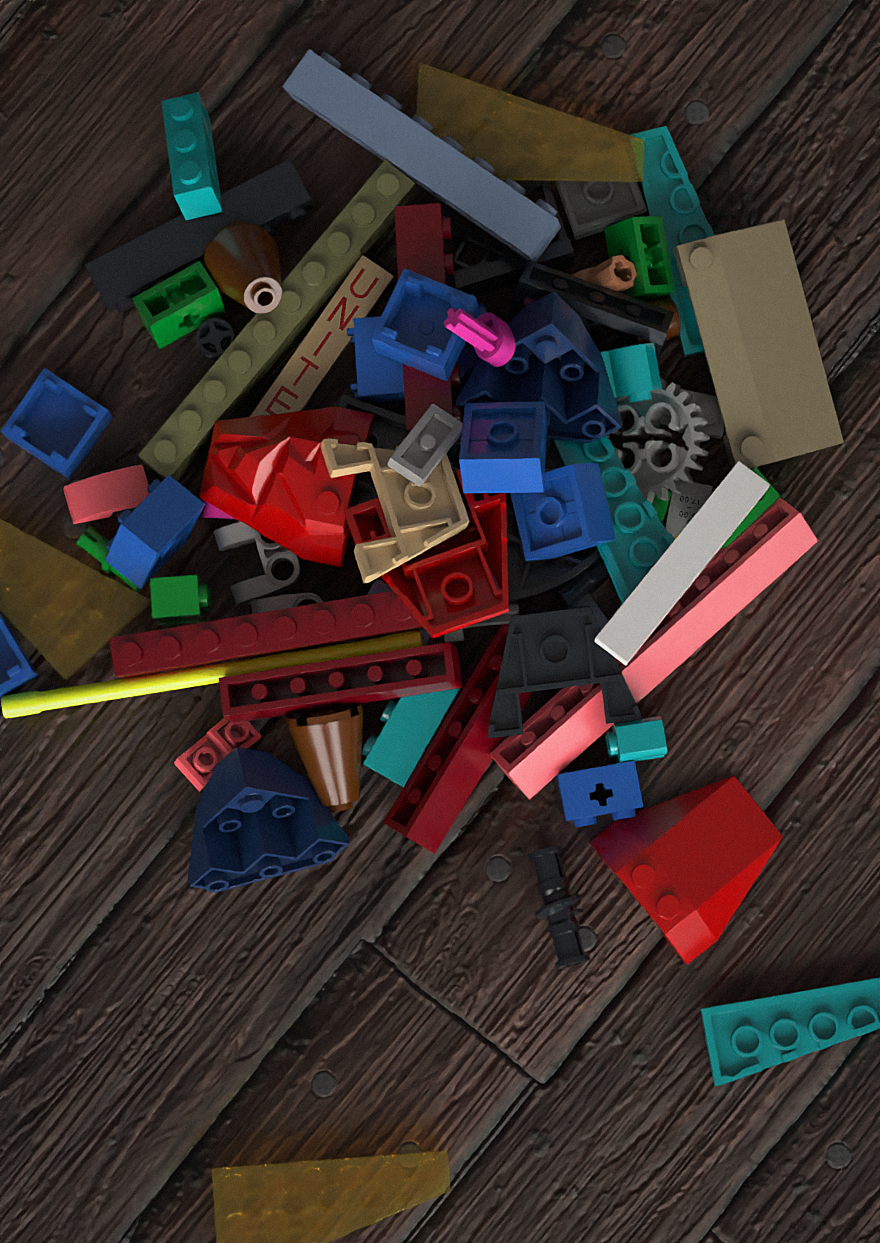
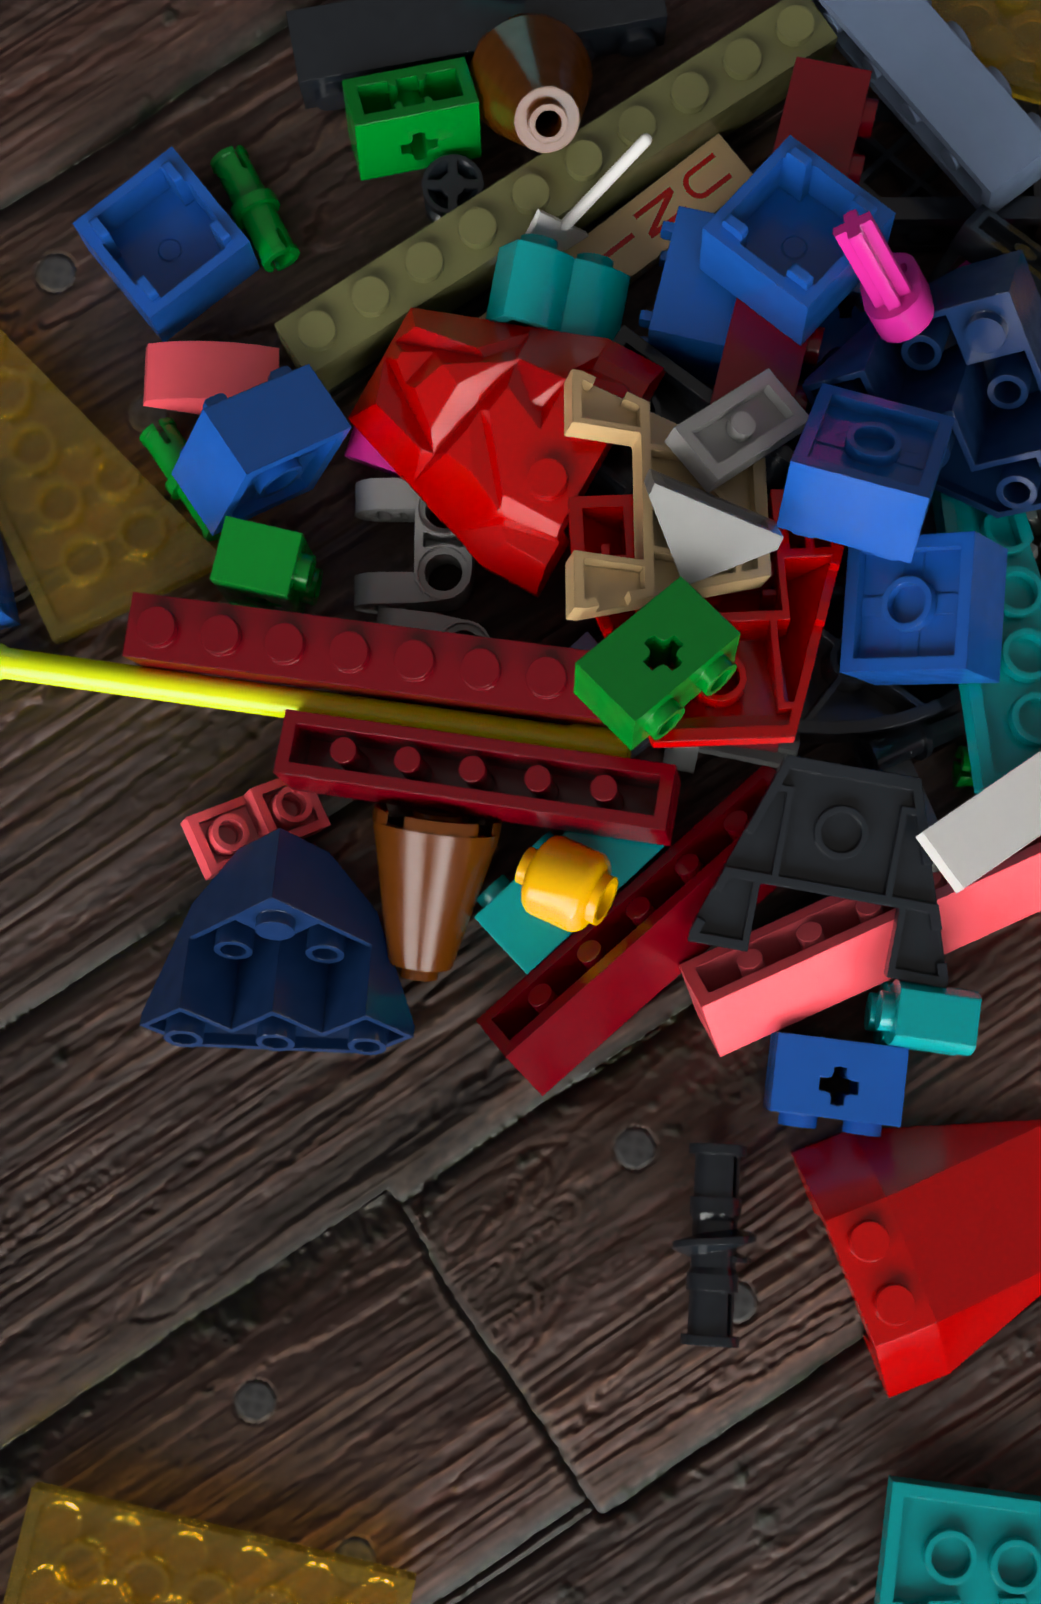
camera: 20 degrees right, 0 degrees up
(101, 384) = (255, 208): none -> green pin
(283, 350) = (564, 230): none -> white piece
(298, 387) = (556, 291): none -> teal brick
(410, 727) = (566, 883): none -> yellow head
(421, 572) = (671, 631): none -> green brick
(425, 508) = (707, 531): none -> light grey slope

